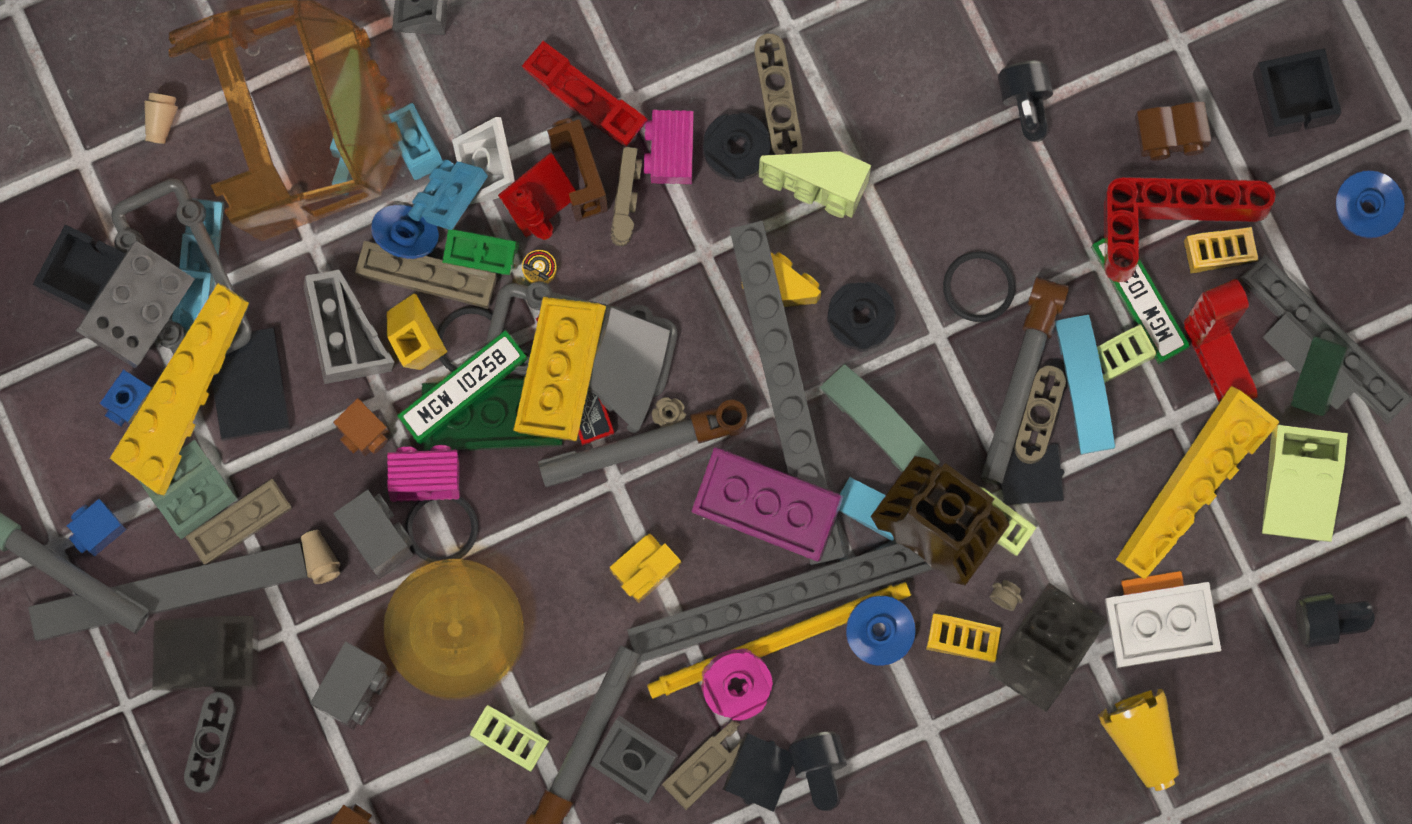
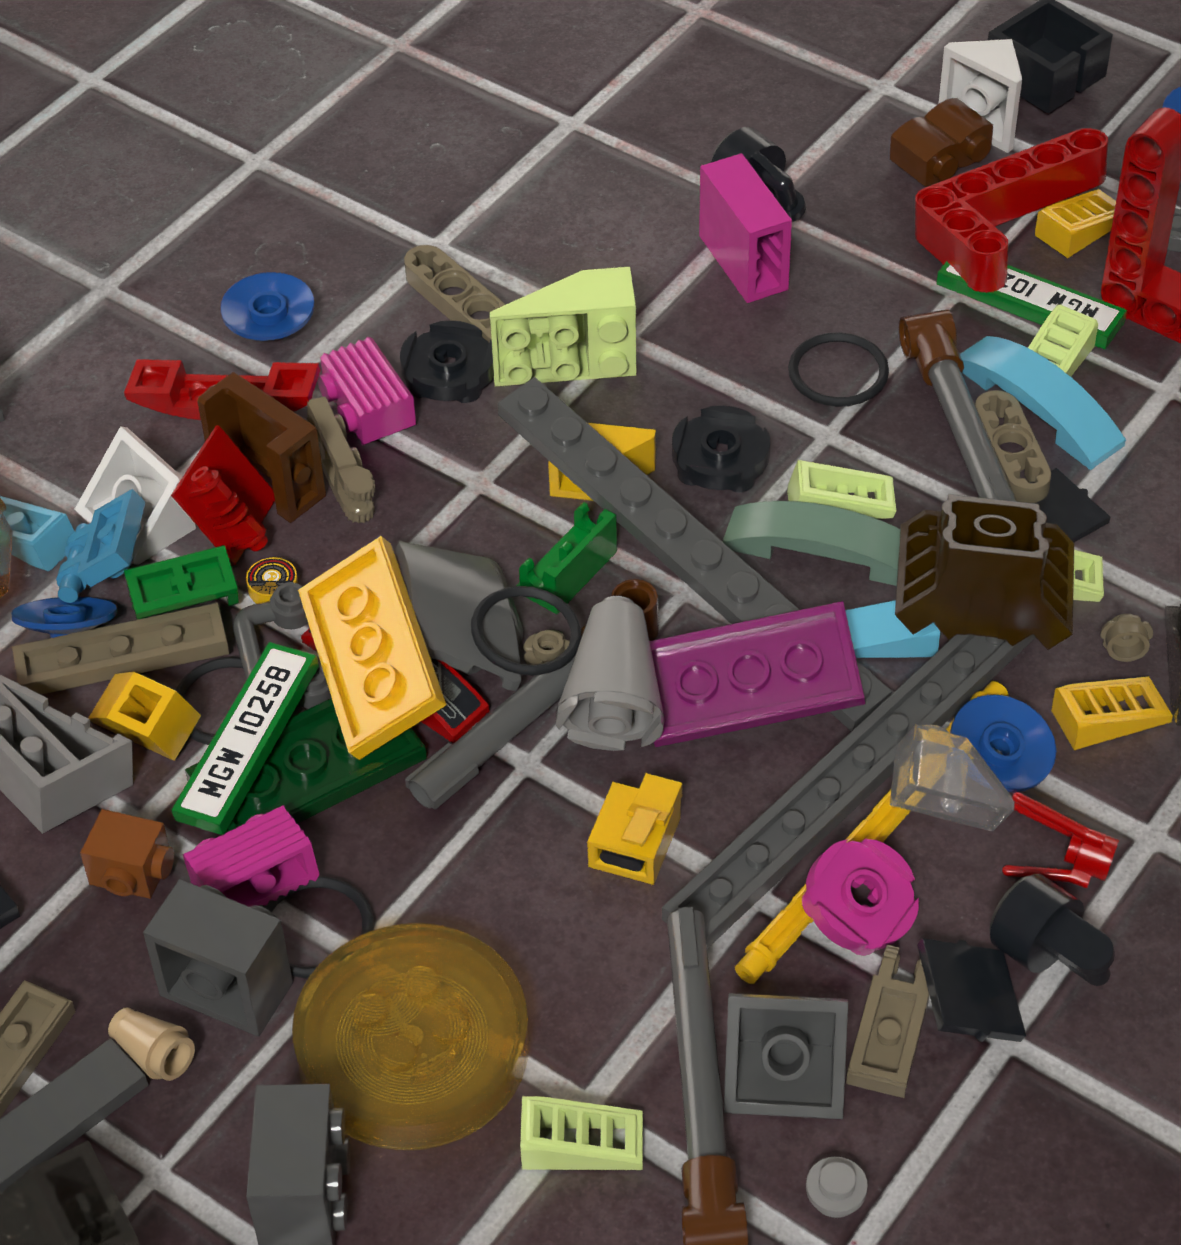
camera: 30 degrees left, 30 degrees down
(643, 21) = (267, 306): none -> blue dish
(684, 467) = (612, 681): none -> light grey cone
(687, 405) = (524, 669): none -> black tyre
(718, 352) = (573, 558): none -> green hinge
(827, 639) = (947, 779): none -> clear slope
(881, 725) = (1088, 849): none -> red plant
(907, 374) = (831, 485): none -> yellowish green slope
(982, 146) = (745, 227): none -> dark pink brick
(1225, 107) = (986, 80): none -> white slope

